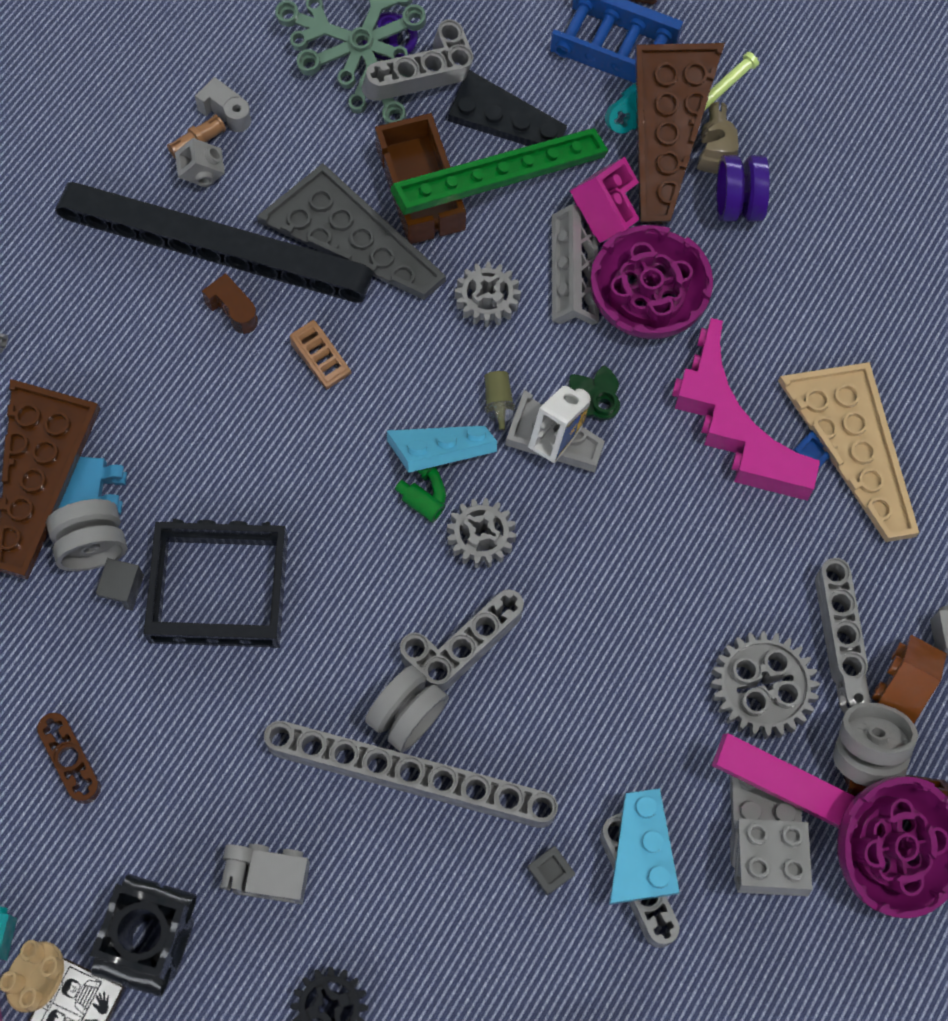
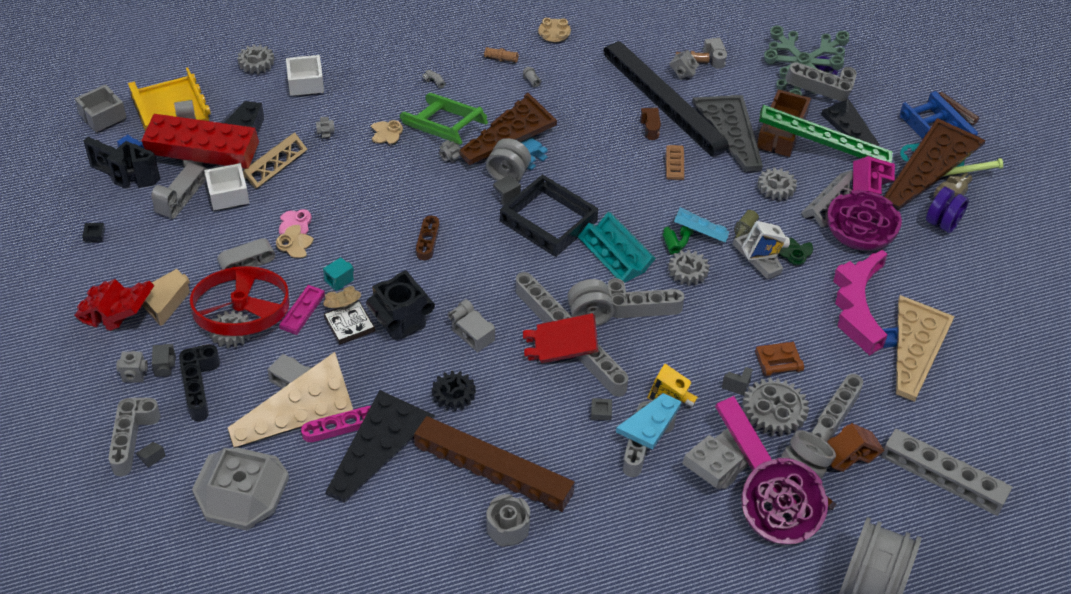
camera: 40 degrees right, 20 degrees down
(356, 571) = (617, 248): none -> teal slope
(418, 802) = (562, 339): none -> red tile
(621, 768) = (672, 384): none -> yellow torso
(686, 678) = (737, 383): none -> dark grey panel
(700, 590) = (779, 354): none -> dark orange plate

